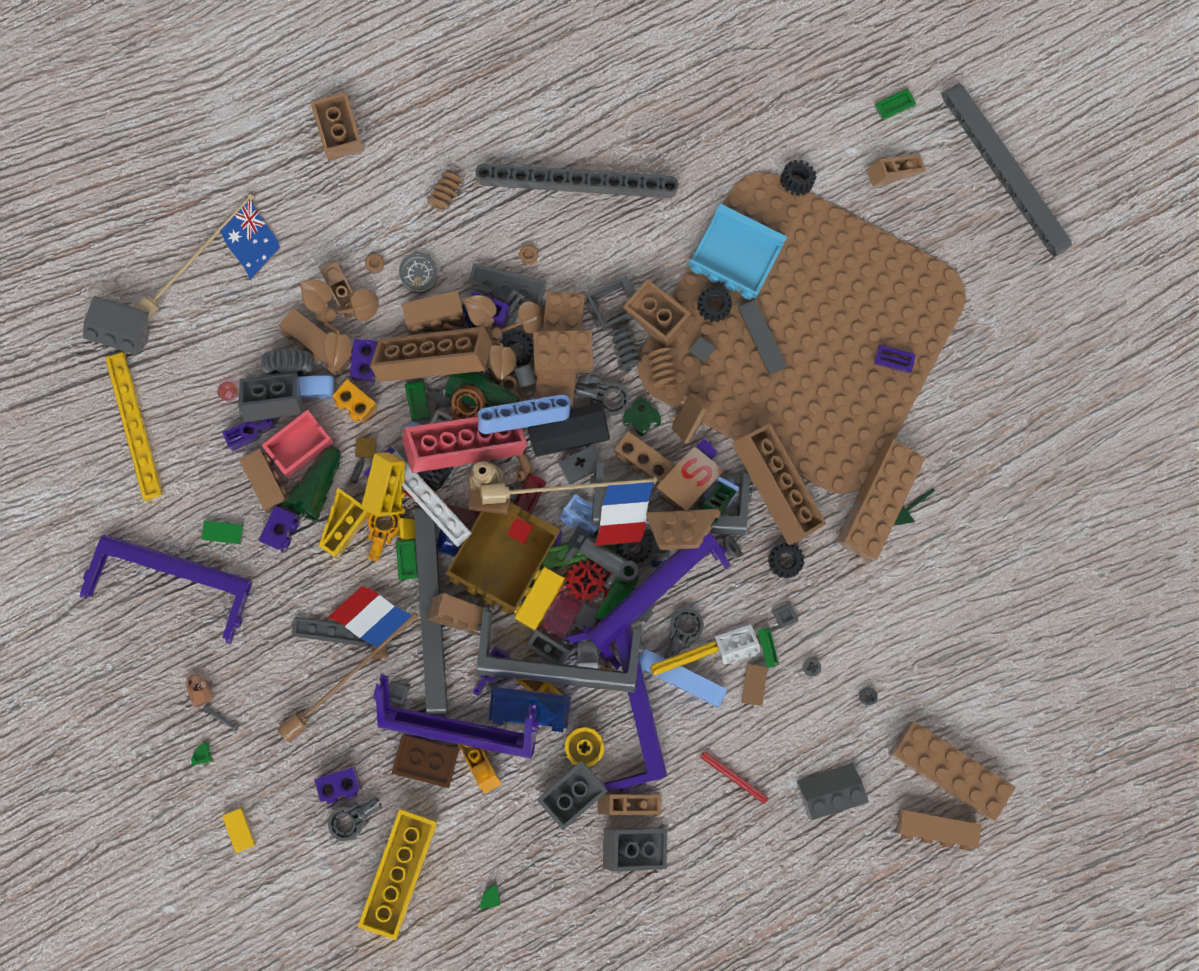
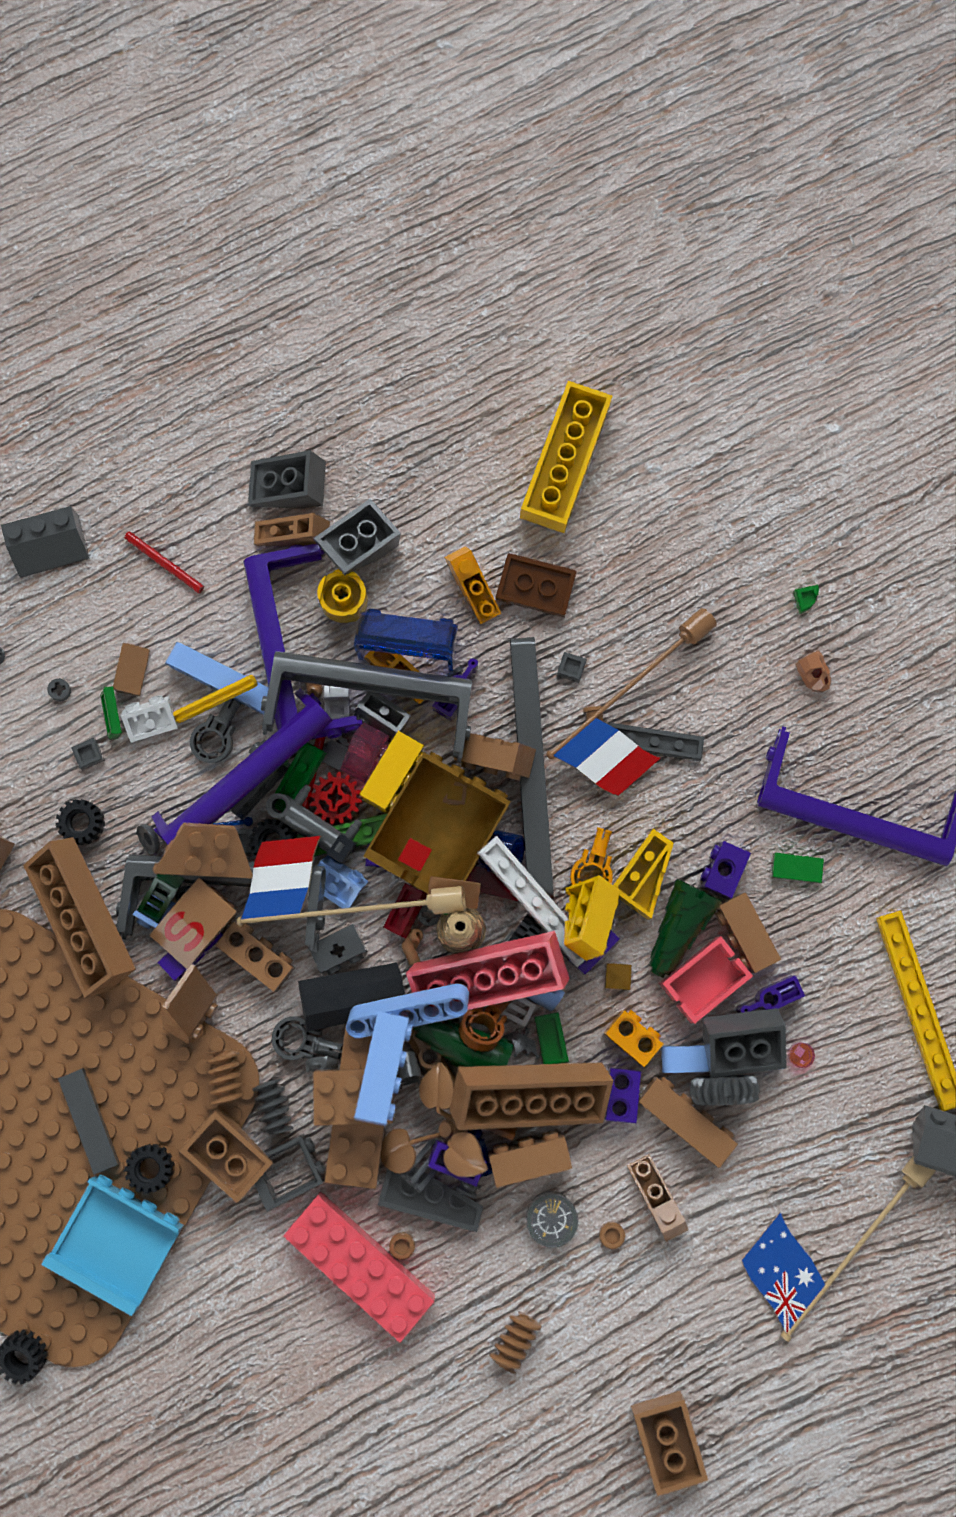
camera: 175 degrees left, 0 degrees up
(207, 709) = (802, 651): dark grey hinge -> none
(238, 830) = (757, 511): yellow tile -> none
(315, 295) = (689, 1178): medium nougat plant -> none
(336, 780) = (643, 564): dark purple brick -> none
(356, 473) = (628, 944): dark grey piece -> none
(363, 812) = (617, 525): dark grey pin -> none
(407, 529) = (561, 868): yellow slope -> none
(407, 559) = (562, 830): green tile -> none
(455, 730) = (500, 617): dark purple piece -> none
(490, 898) = (458, 431): green tile -> none
(524, 341) = (409, 1120): black tyre -> none
(540, 367) = (381, 1069): none -> light blue brick
(558, 240) = (360, 1266): none -> coral brick
(584, 186) = (320, 1362): dark grey beam -> none
(641, 419) = (256, 1010): dark green plate -> none
(701, 350) = (171, 1104): dark grey tile -> none

